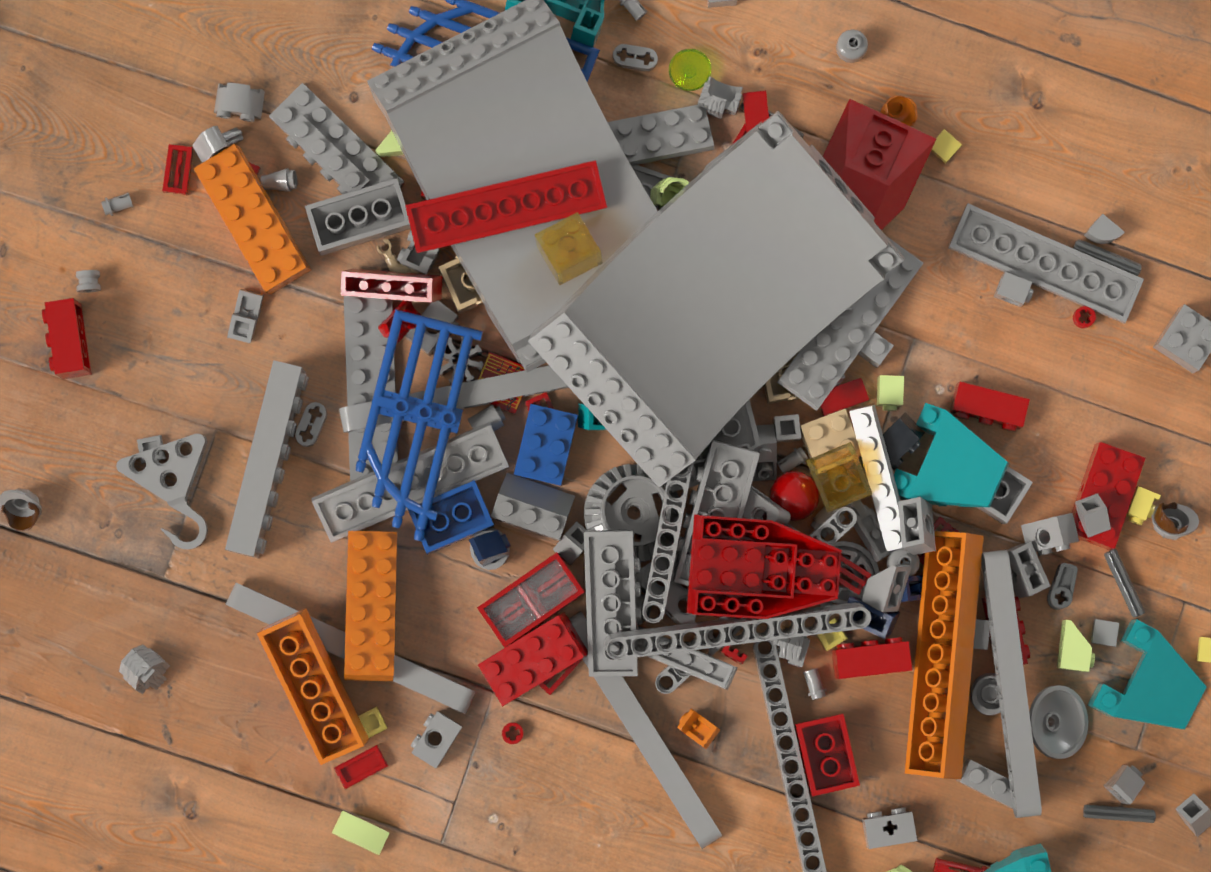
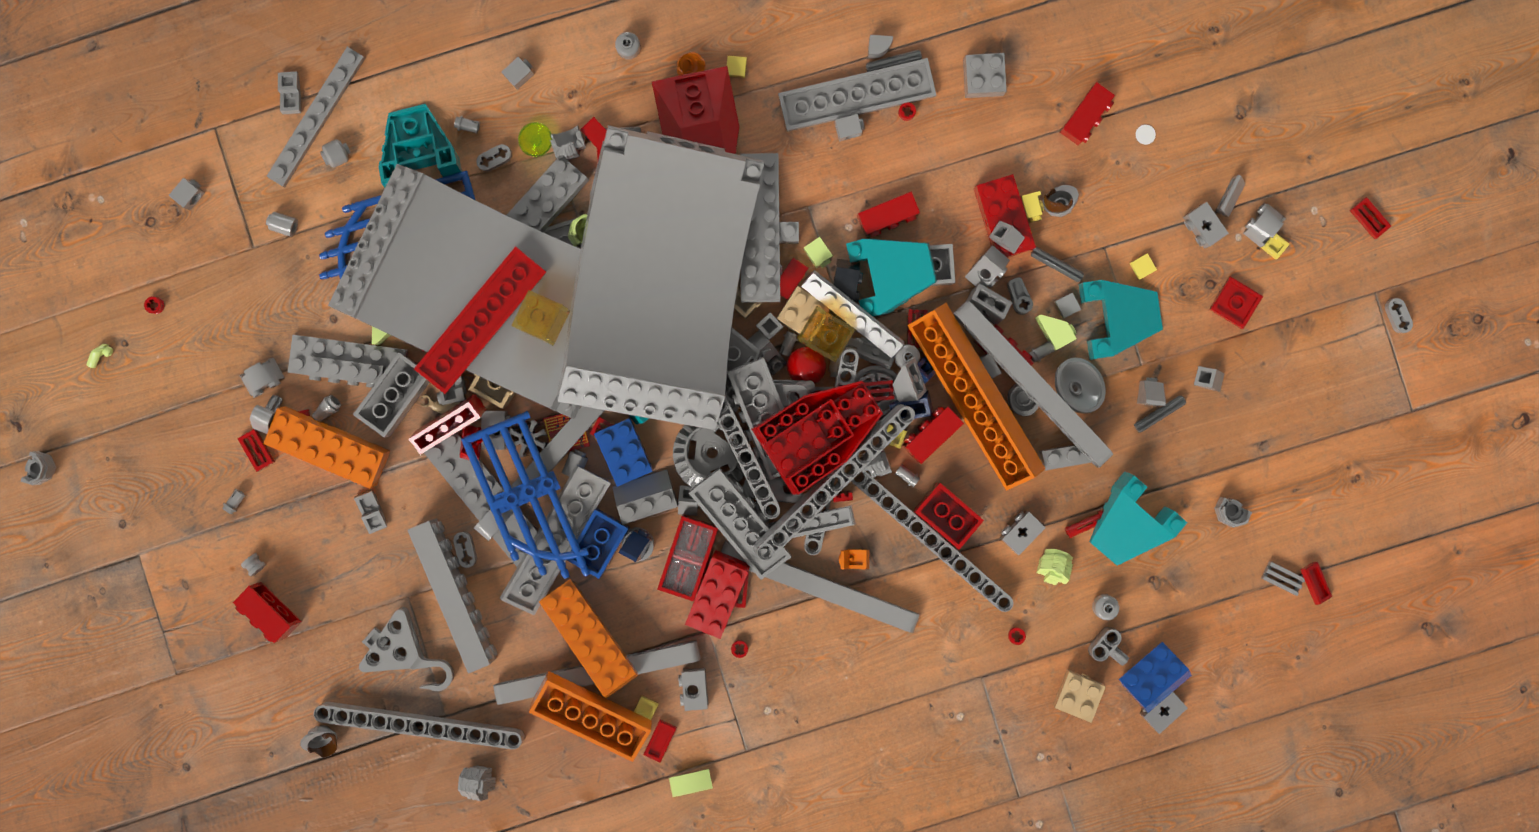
camera: 25 degrees left, 5 degrees up
(120, 562) = (410, 725): none -> light grey beam
(916, 526) = (899, 328): light grey brick -> none
(1043, 659) = (1042, 351): none -> light grey pin

